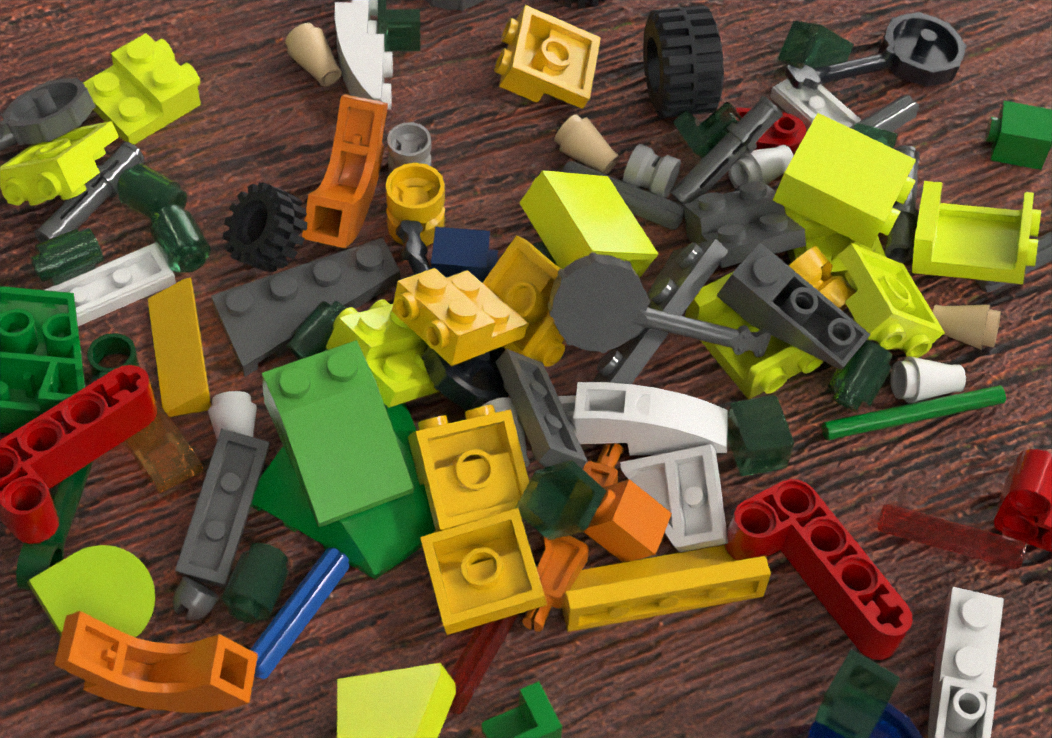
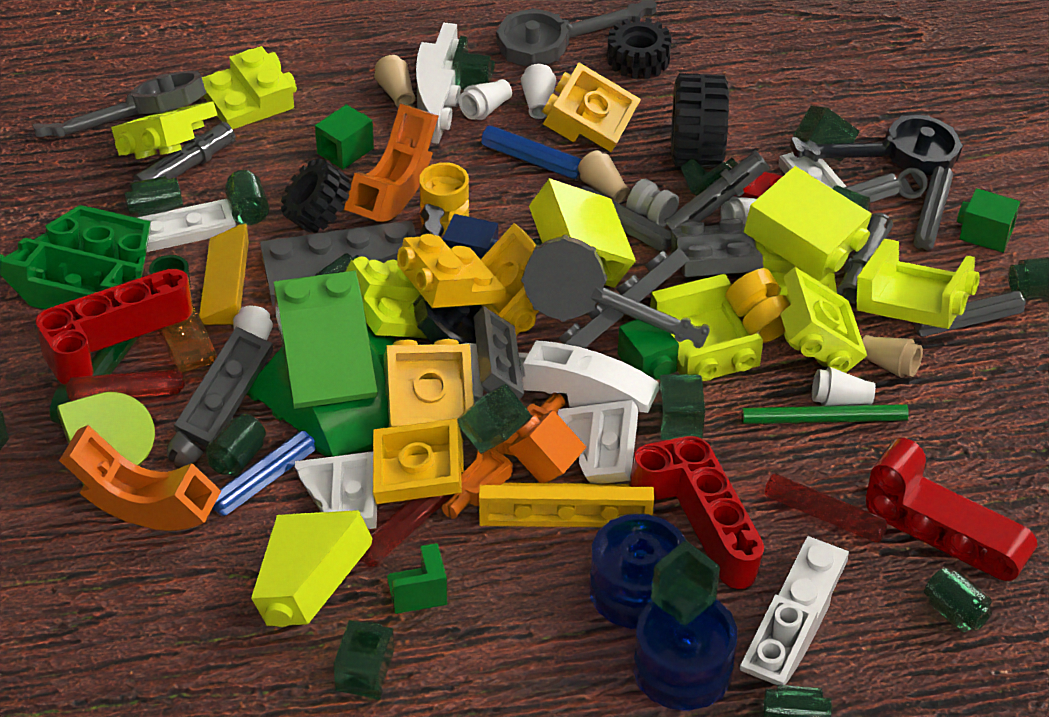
camera: 15 degrees right, 10 degrees down
(101, 528) = (133, 384): none -> clear red axle
(149, 190) = (229, 156): clear green brick -> none
(274, 138) = (344, 136): none -> green brick
(399, 617) = (341, 484): none -> white wing
(408, 144) = (453, 150): light grey wheel -> none
(421, 63) = (482, 99): none -> white cone
(481, 40) = (538, 85): none -> white cone
(494, 123) = (531, 151): none -> blue axle
(700, 368) = (648, 348): none -> green brick
(776, 668) = (625, 562): none -> clear blue wheel
(791, 309) = (728, 308): dark grey slope -> none
(861, 377) = (782, 374): clear green brick -> none
(932, 93) = (905, 187): none -> dark grey hinge
(955, 127) = (933, 208): none -> dark grey axle

